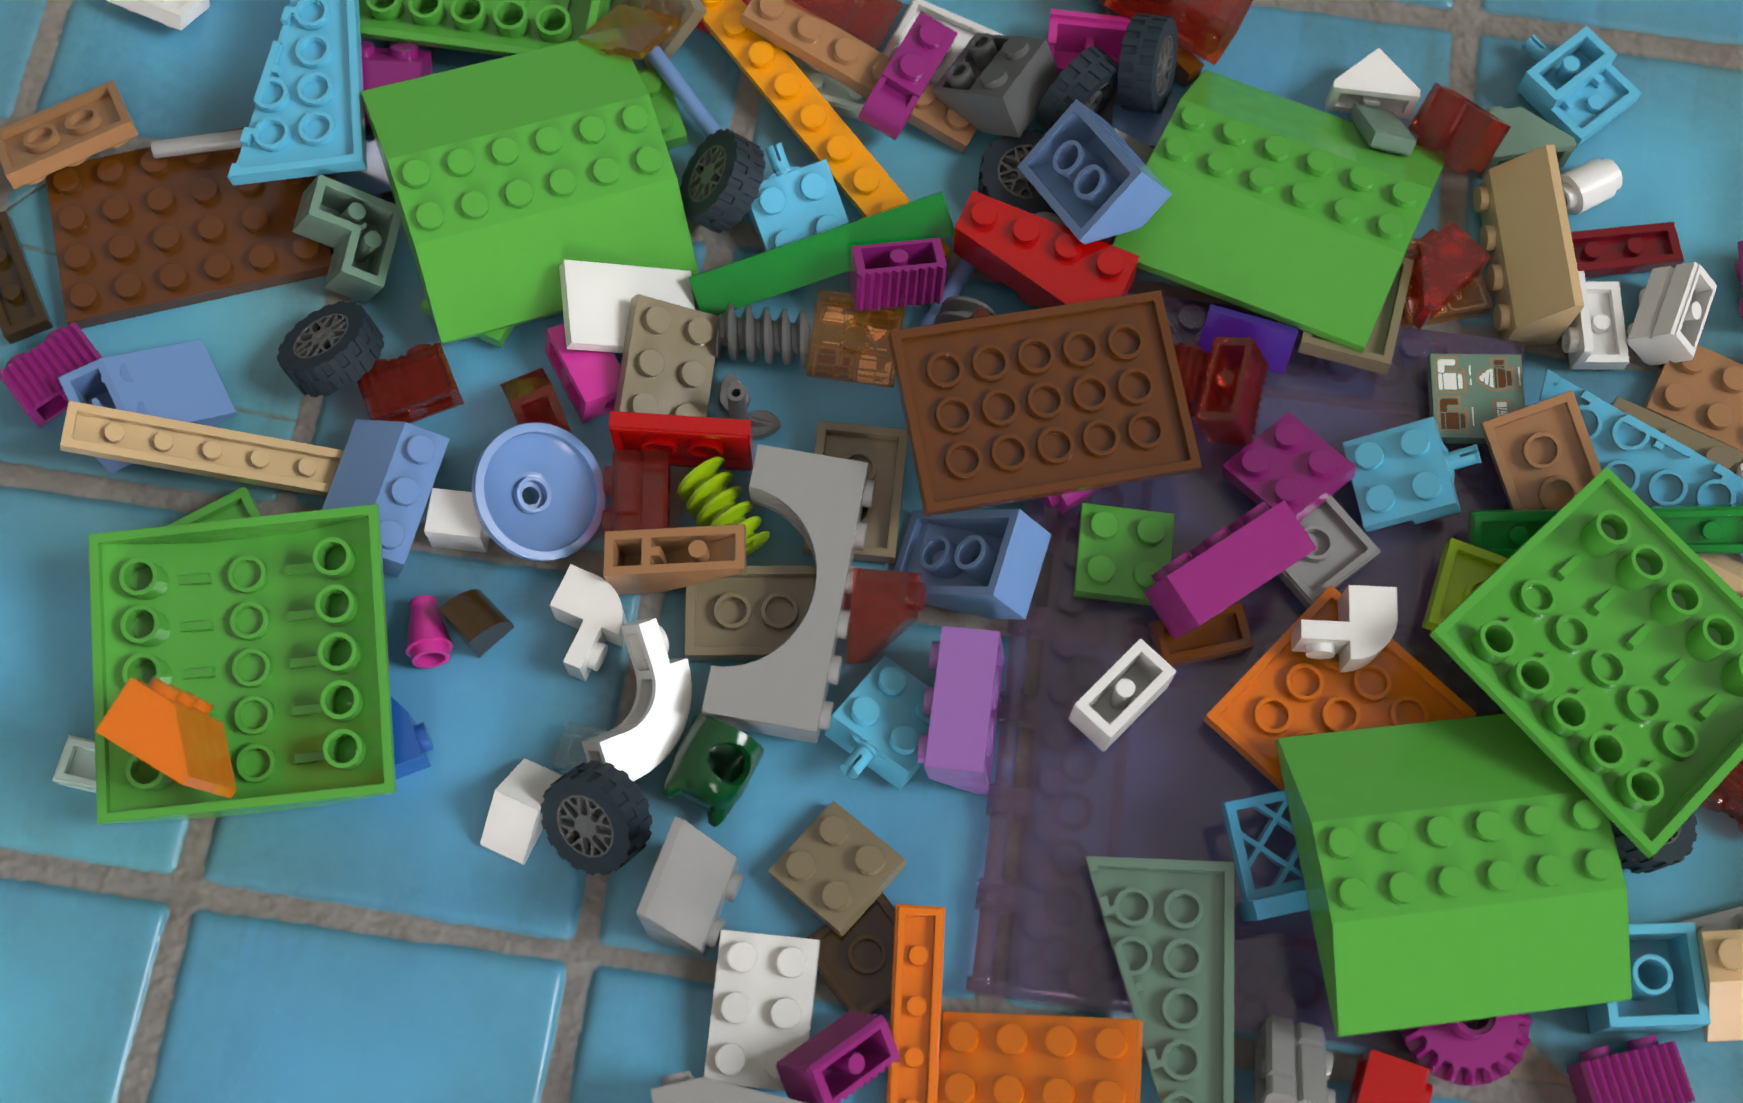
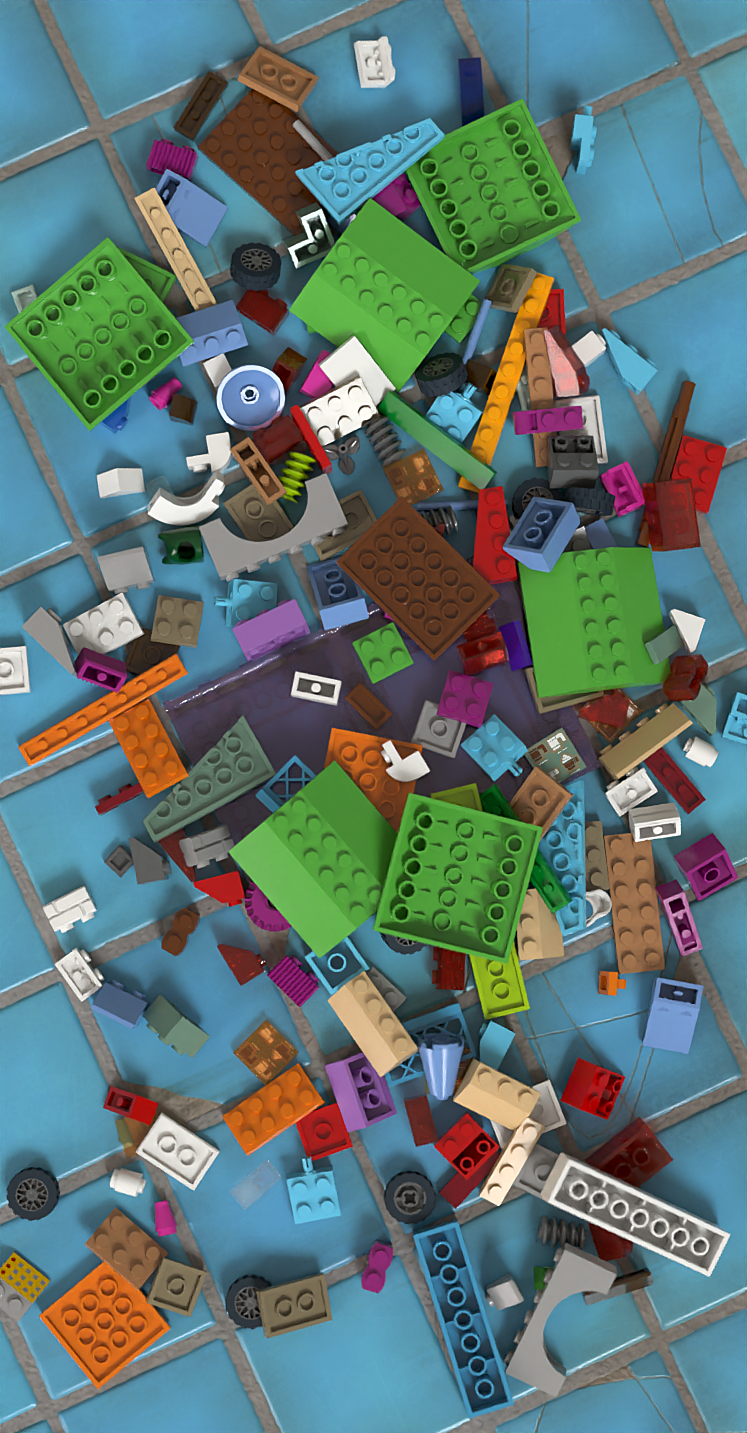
camera: 60 degrees right, 15 degrees up
(172, 734) = (47, 337): orange slope -> none
(596, 817) = (132, 514): black wheel -> none
(630, 31) = (483, 286): clear orange piece -> none
(768, 129) = (480, 376): none -> dark brown brick
(881, 610) = (293, 568): clear red slope -> none
(897, 274) = (446, 478): magenta brick -> none
(1147, 63) = (622, 521): black wheel -> none
(1227, 567) = (393, 697): magenta brick -> none

